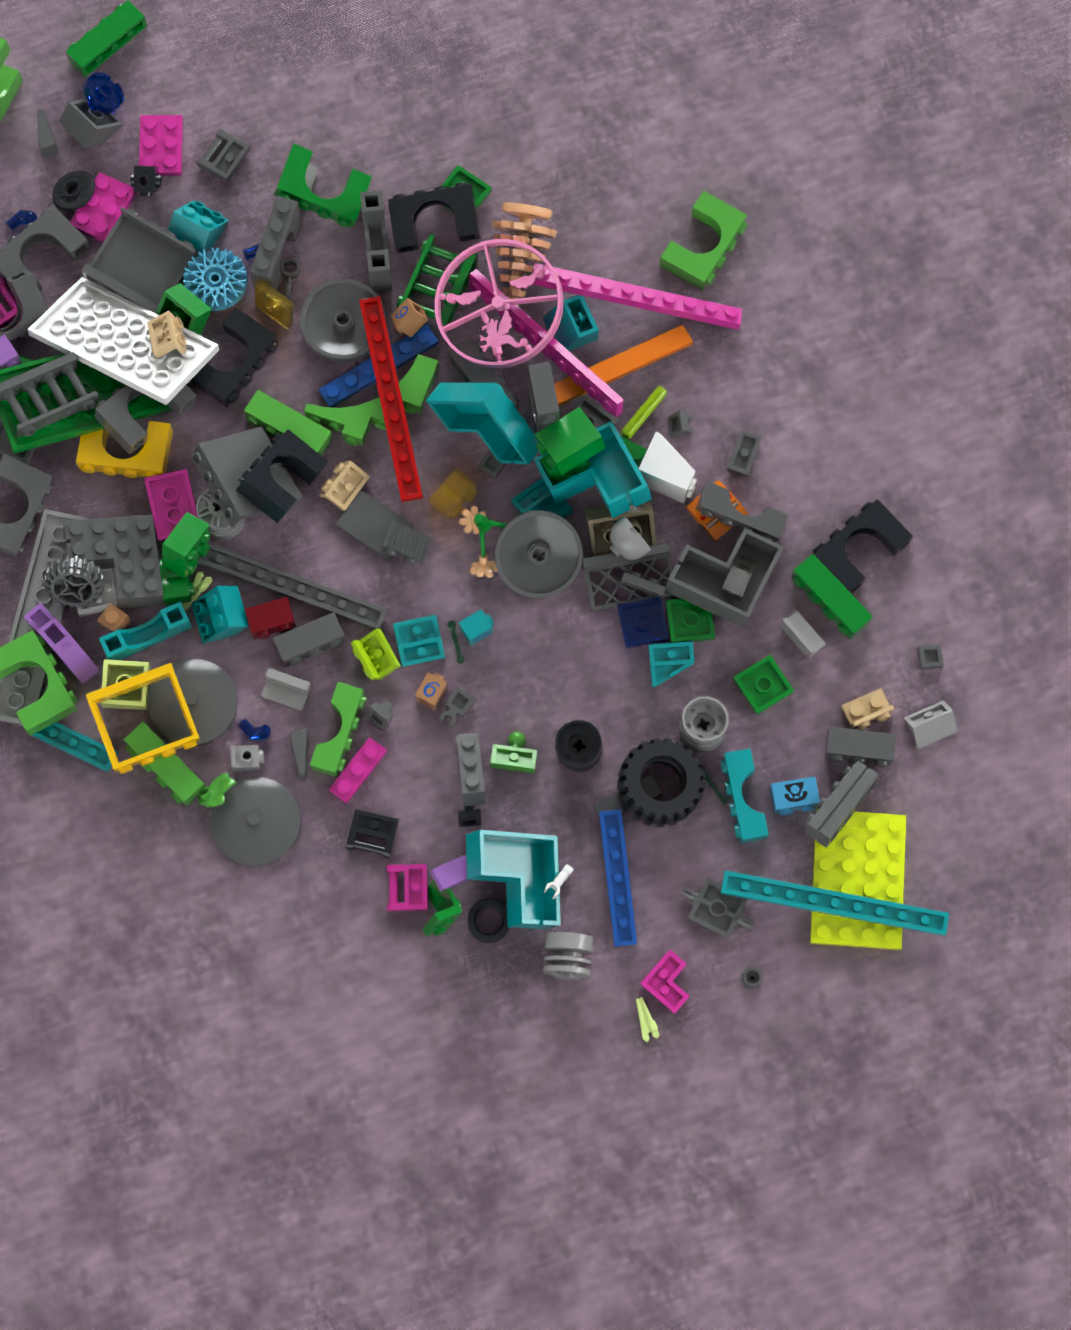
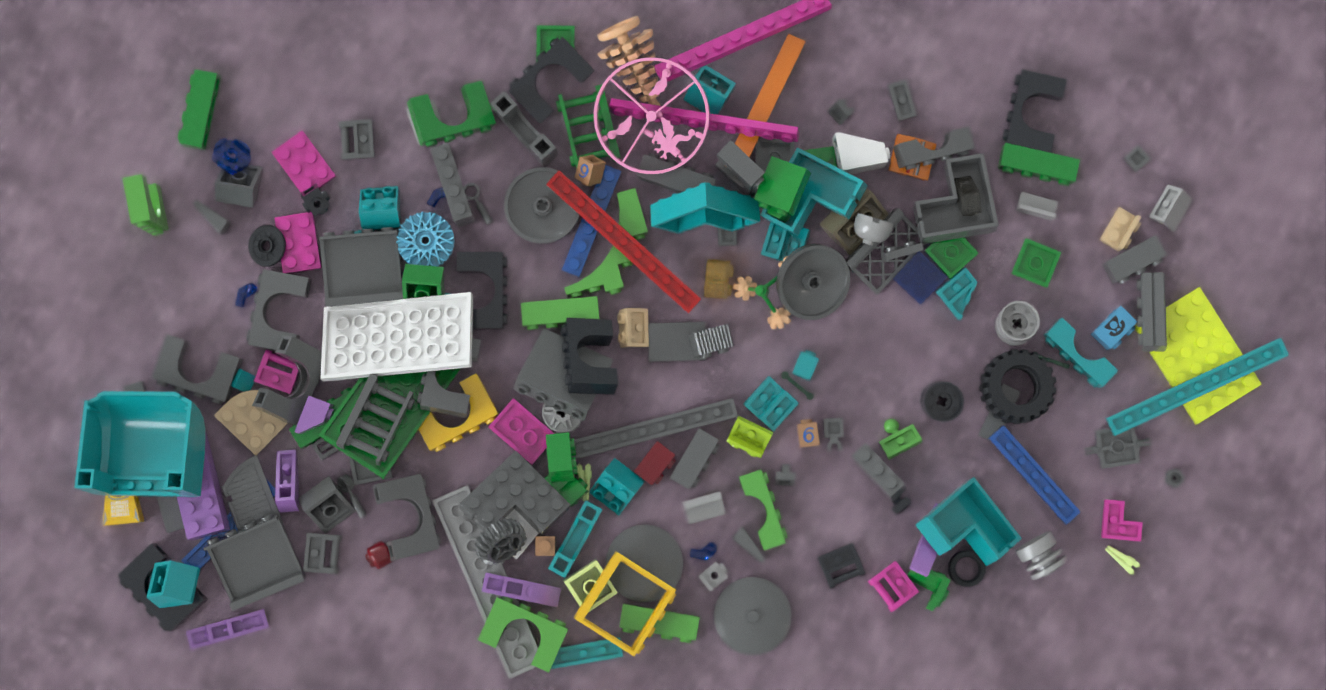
camera: 35 degrees left, 10 degrees up
(166, 334) = (429, 312): tan bracket -> none
(213, 795) = (710, 615): bright green plate -> none
(273, 304) = (483, 229): clear yellow plate -> none
(358, 770) = (797, 528): dark pink plate -> none
(559, 880) = (998, 506): white arm -> none
(644, 412) = (808, 114): lime axle -> none

